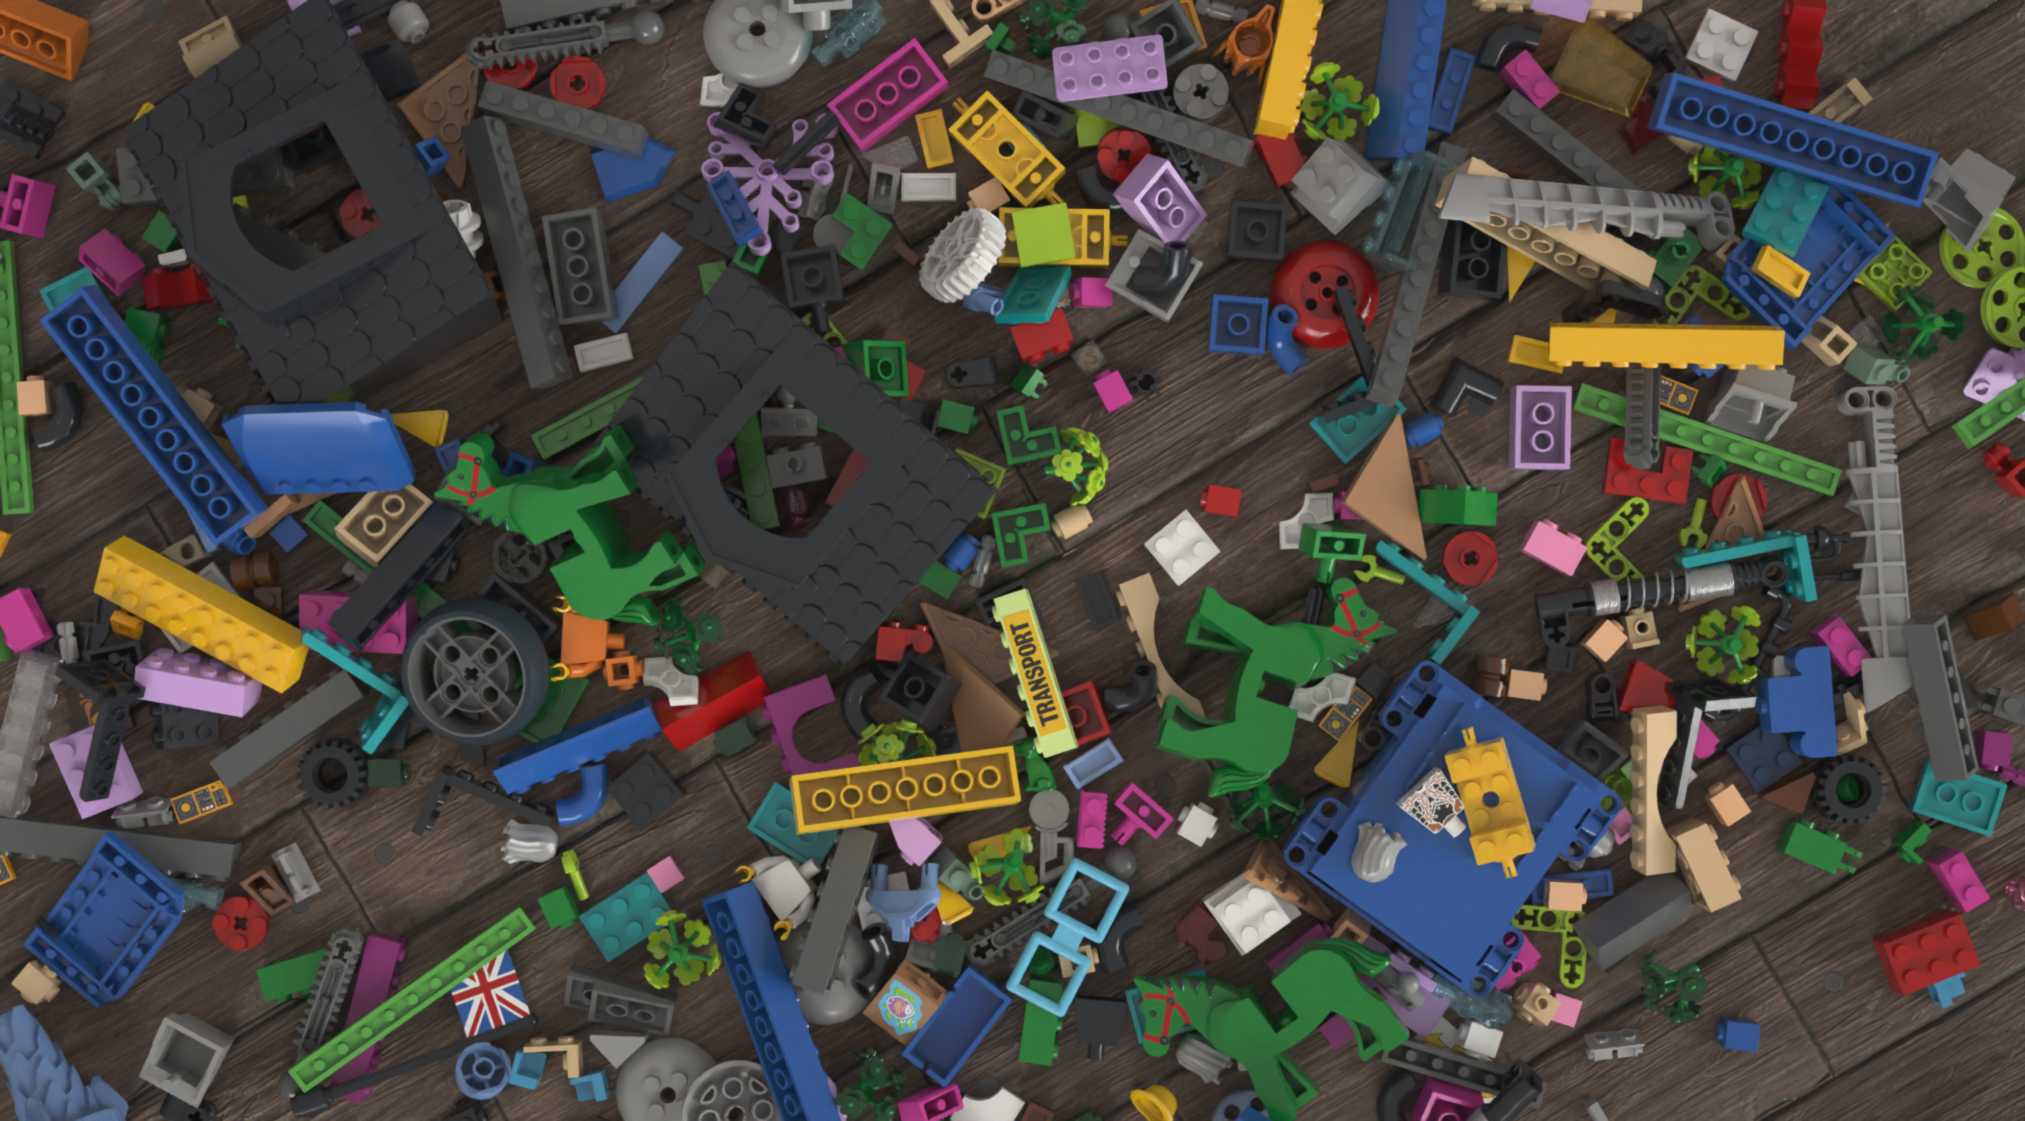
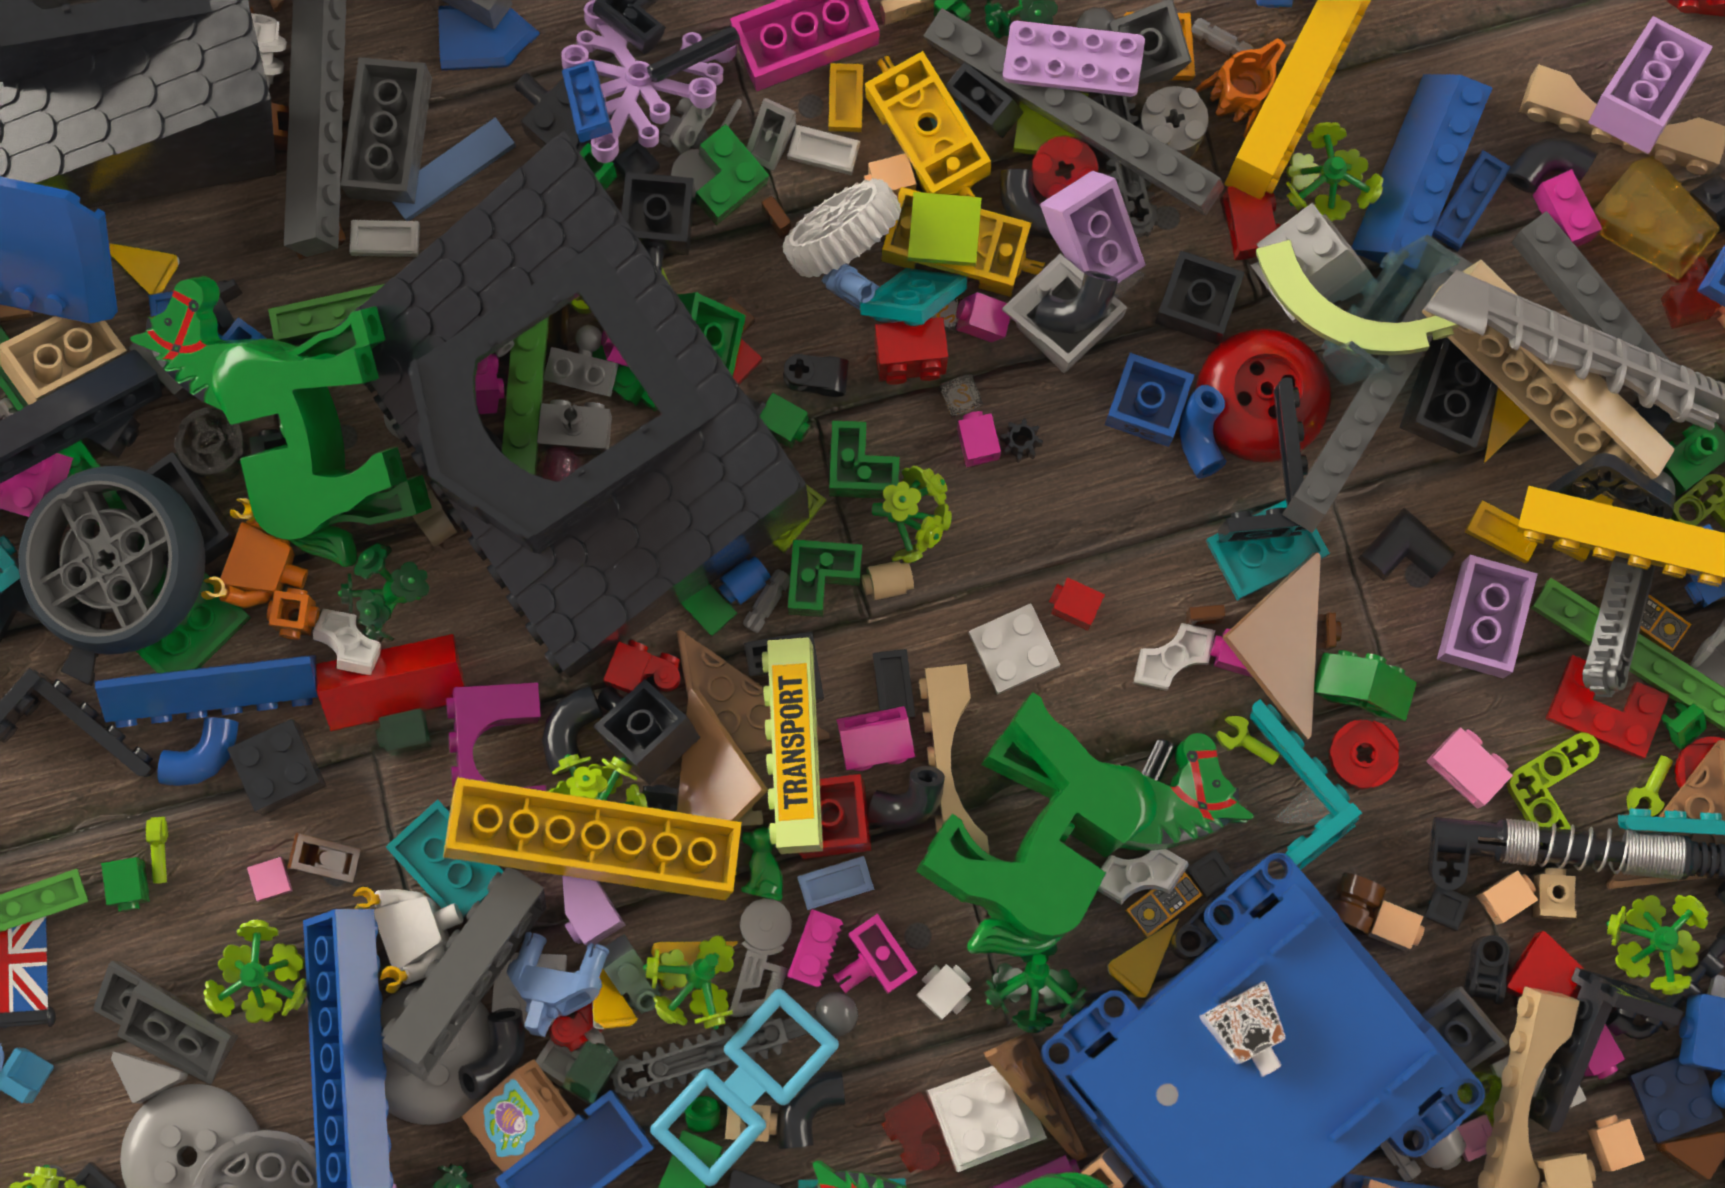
camera: 15 degrees right, 10 degrees down
(528, 842) = (112, 792): light grey piece -> none
(571, 1060) = (81, 1081): tan bracket -> none
(592, 1085) = (96, 1120): dark azure panel -> none
(626, 916) = (203, 919): teal plate -> none
(703, 849) = (323, 858): none -> reddish brown slope
(895, 154) = (800, 99): clear tile -> none
(1027, 380) = (879, 400): green tile -> none
(1094, 647) = (875, 738): none -> dark pink brick
(1329, 545) = (1195, 690): green brick -> none
(1367, 236) = (1337, 325): none -> yellowish green arch
(1375, 852) = (1159, 1068): light grey piece -> none
(1423, 429) = (1343, 583): blue brick -> none
(1496, 831) = (1316, 998): yellow brick -> none

